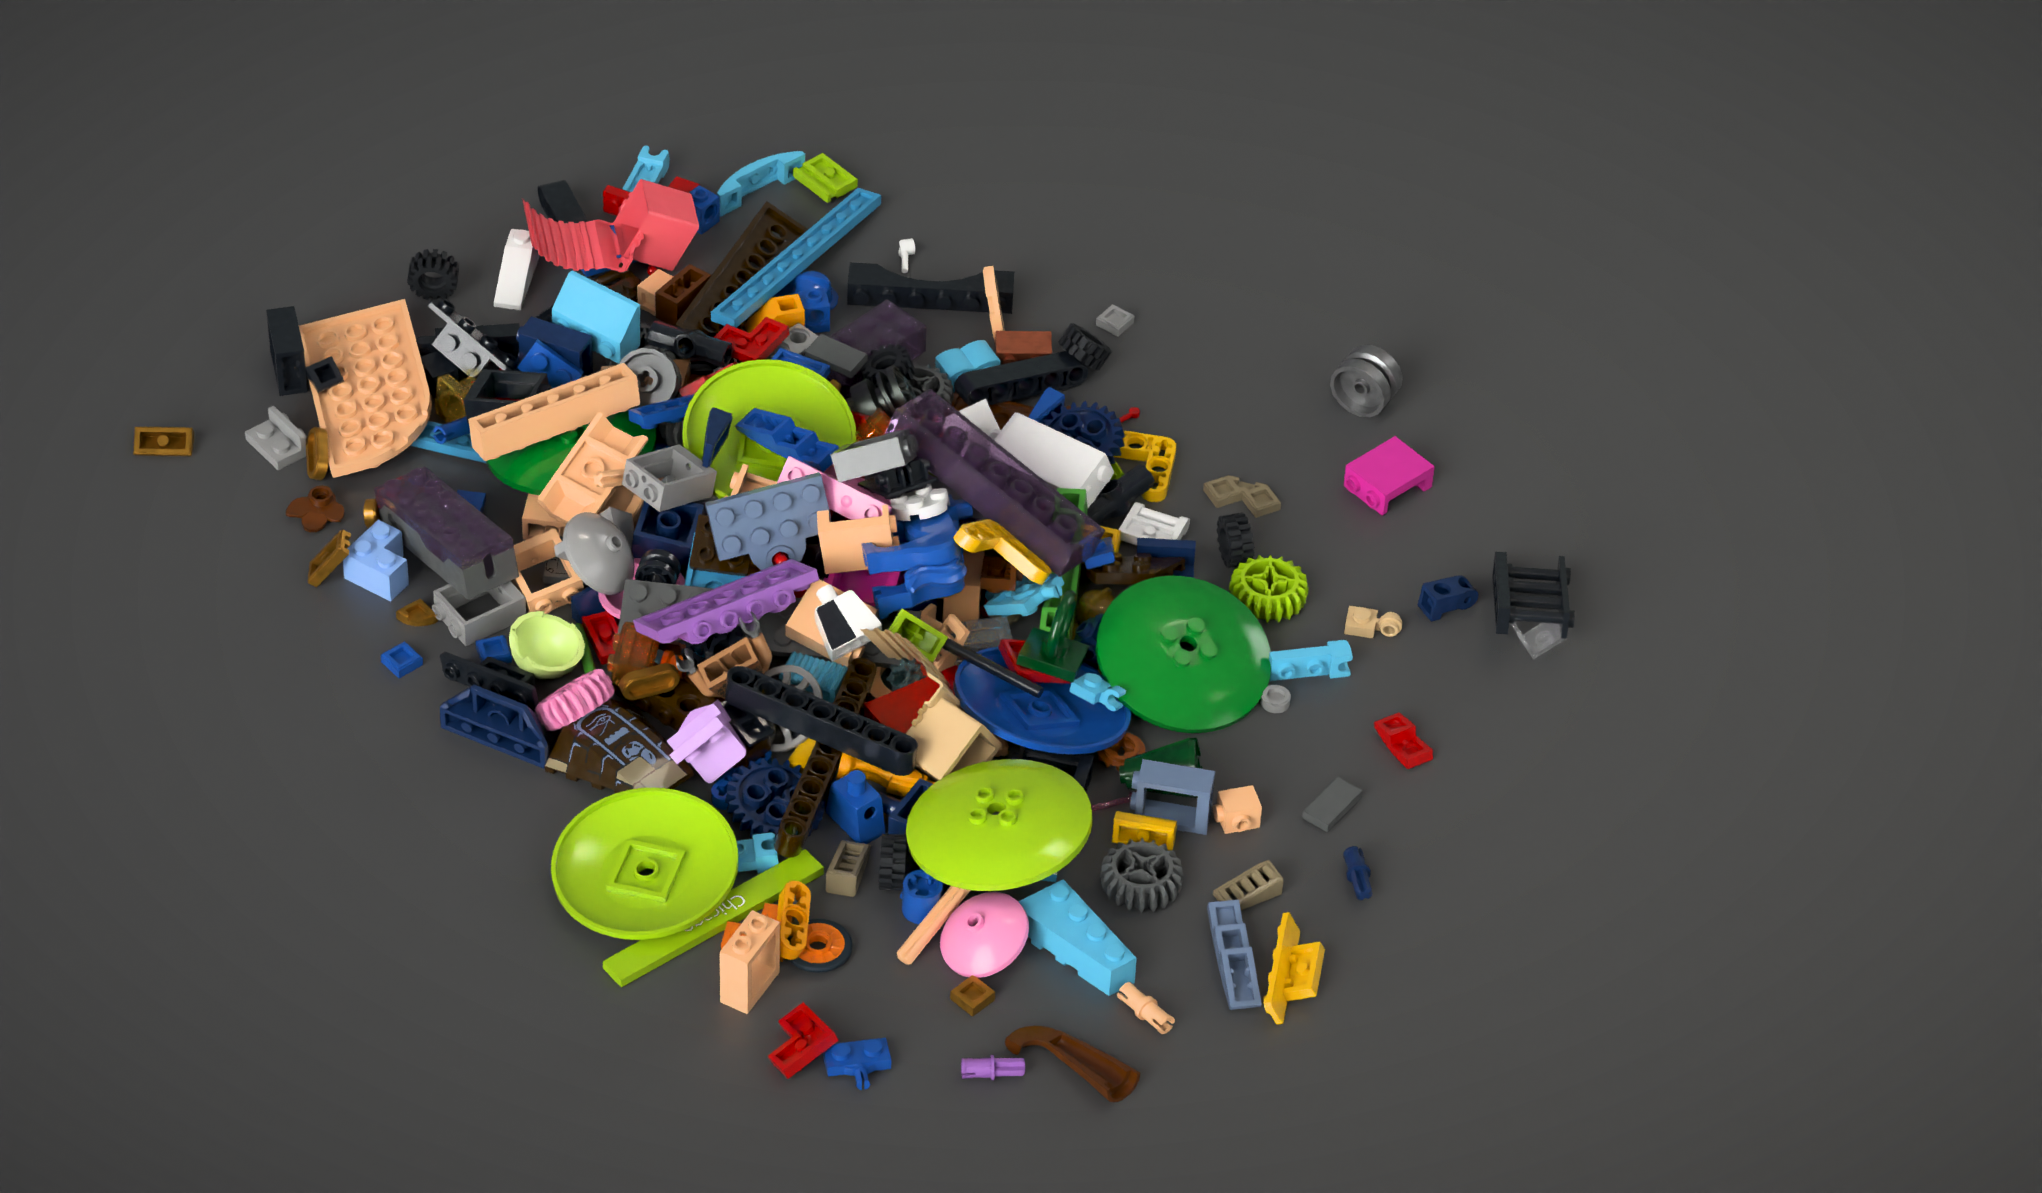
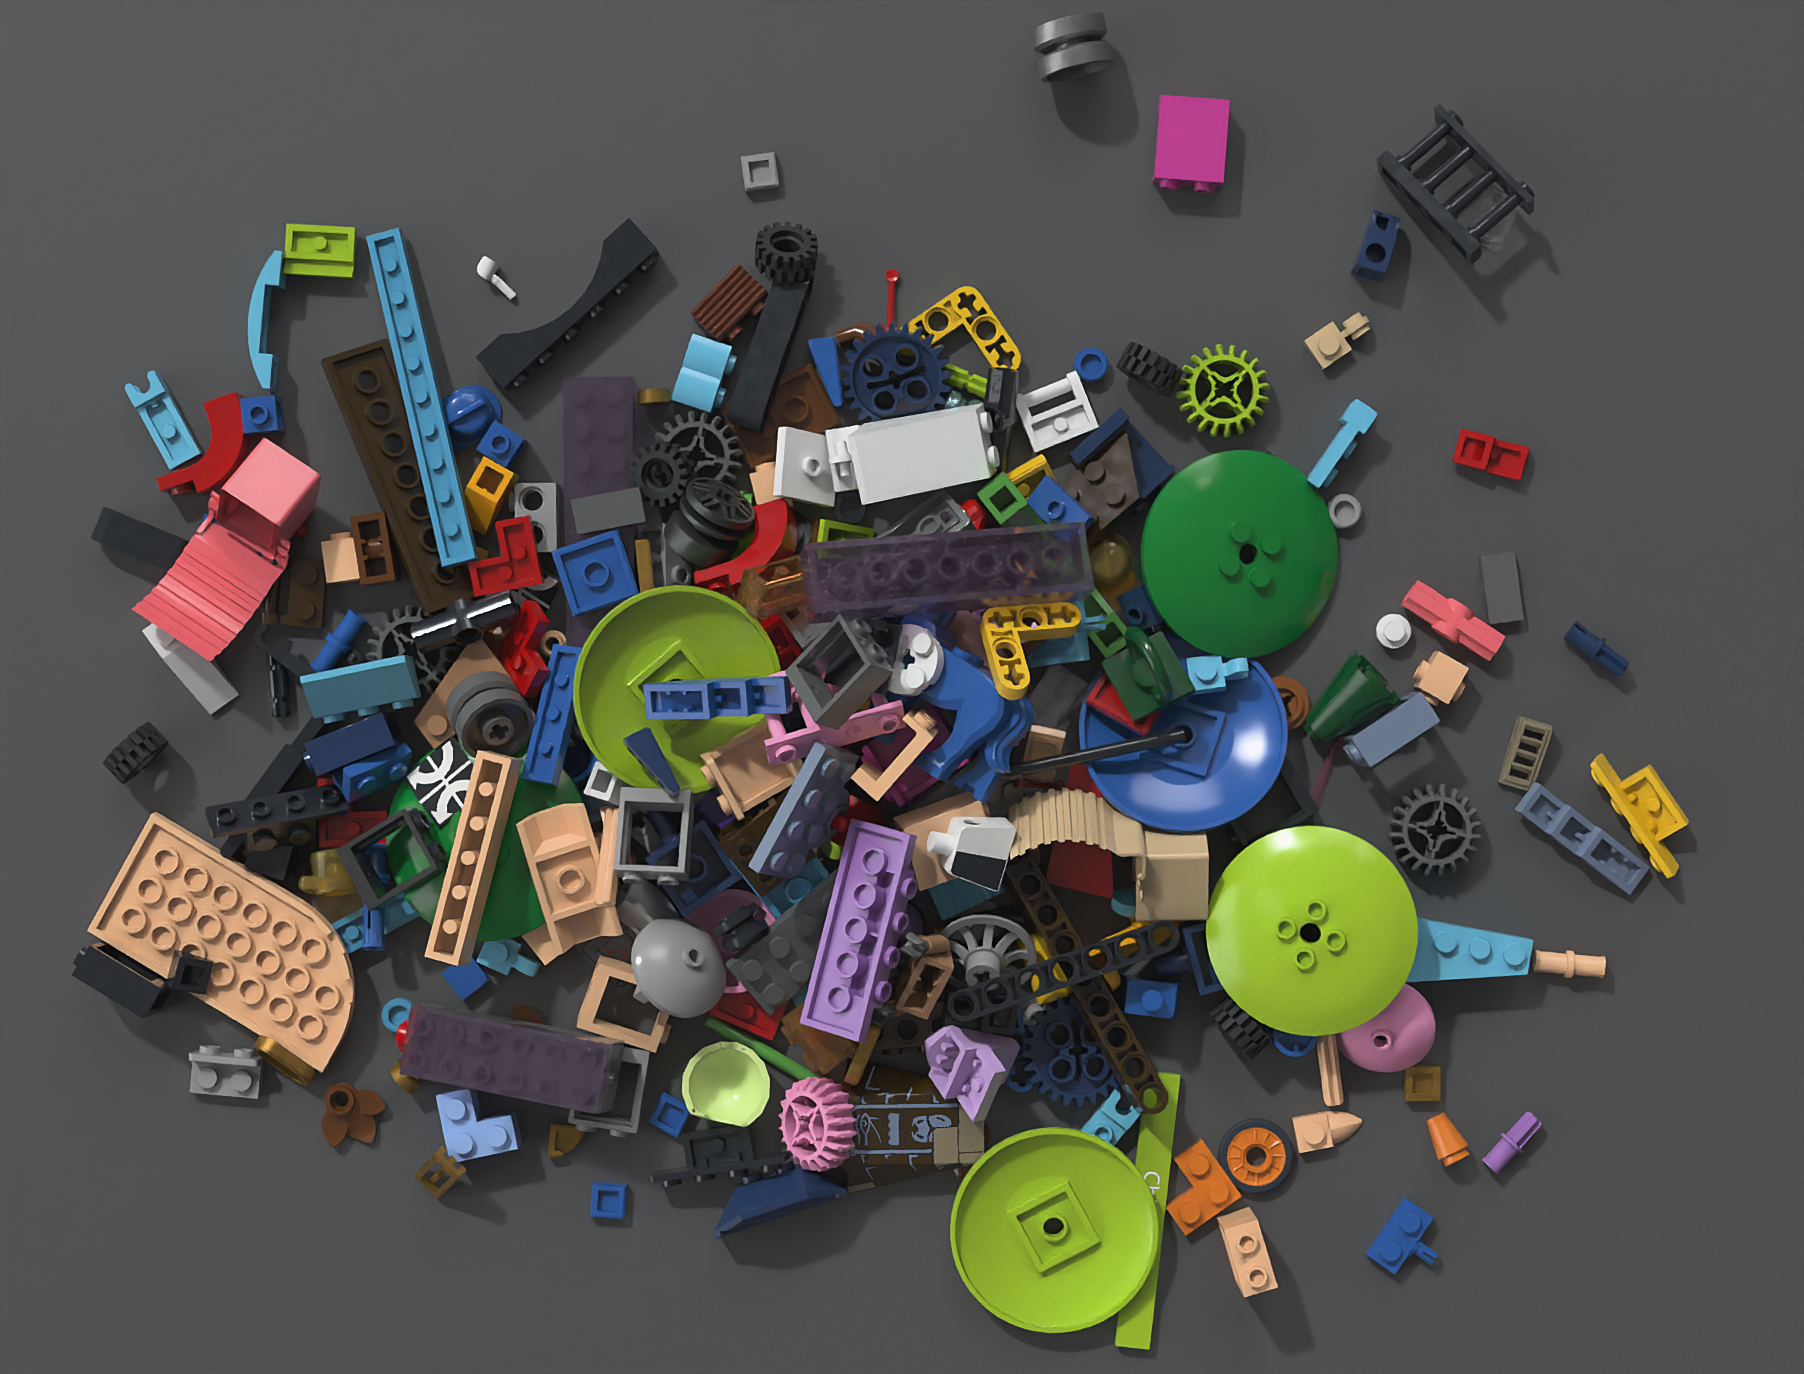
camera: 35 degrees left, 45 degrees up
(163, 441) = (132, 1169): pearl gold slope -> none
(504, 511) = (505, 955): none -> medium azure plate
(800, 911) = (1233, 1189): light orange beam -> none
(807, 1041) = (1355, 1262): red plate -> none
(847, 871) = (1211, 1075): dark tan slope -> none
(877, 968) = (1323, 1129): none -> light nougat plate
(919, 633) = (1033, 790): lime slope -> none
(925, 354) = (654, 396): none -> pearl gold tile
(950, 1031) = (1447, 1140): none -> orange cone
(992, 295) = (657, 282): light nougat tile -> none
(1102, 1071) = (1586, 1063): reddish brown animal -> none
(1136, 826) = (1387, 775): yellow brick -> none
(1202, 528) = (1091, 364): none -> blue tile
(1230, 489) = (1094, 276): dark tan tile -> none
(1236, 771) = (1393, 631): none -> white plate
(1281, 791) = (1453, 620): none -> coral piece

